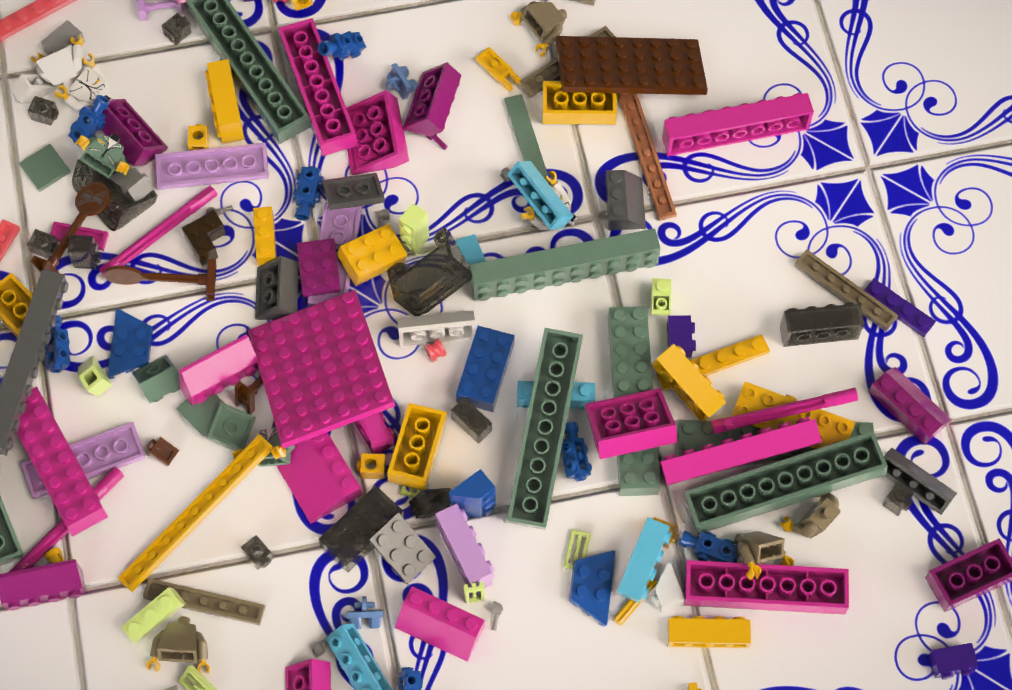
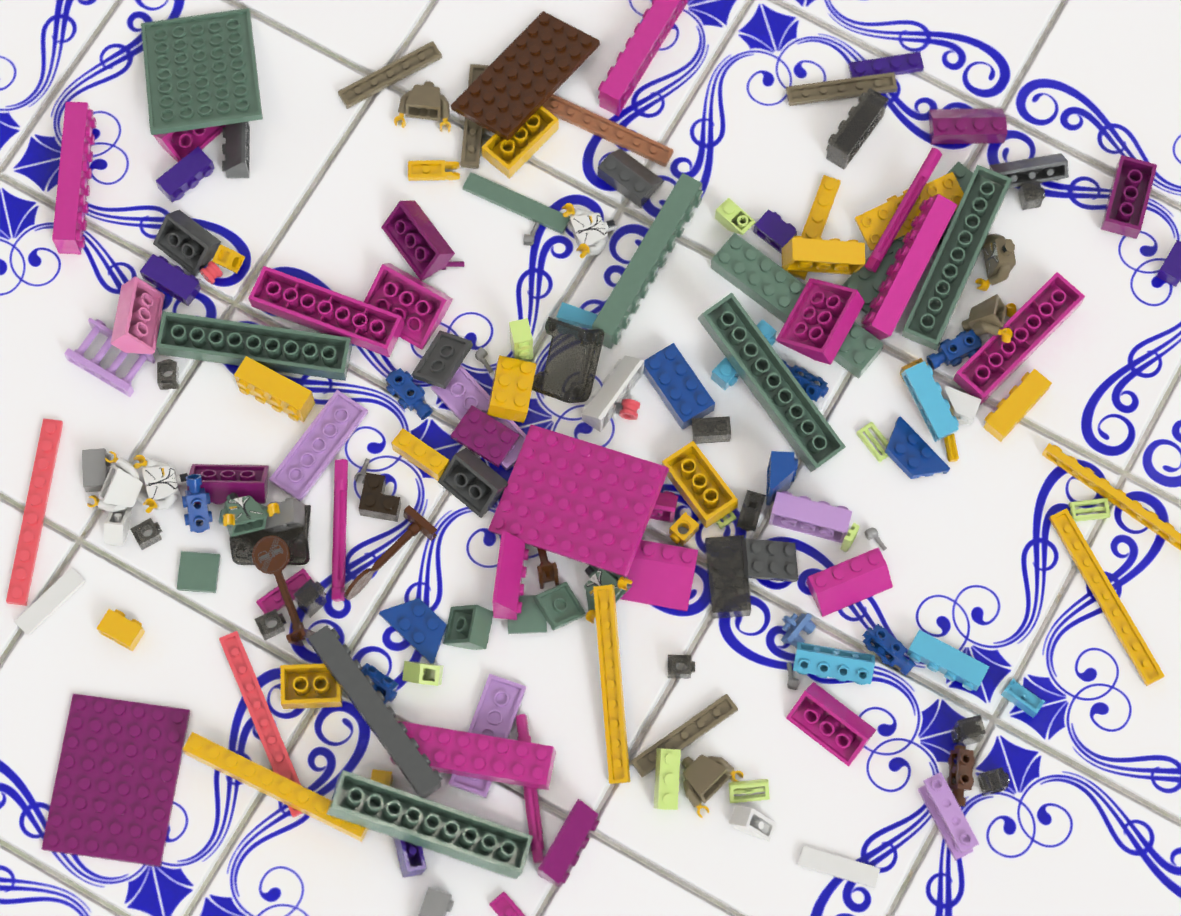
camera: 50 degrees left, 5 degrees up
(54, 555) = (555, 817): yellow bush -> none
(161, 450) = (532, 671): reddish brown bracket -> none
(198, 131) = (288, 443): yellow brick -> none
(343, 45) = (309, 263): blue brick -> none
(398, 81) = (376, 249): medium blue hips -> none
(540, 195) = (578, 229): medium azure brick -> none

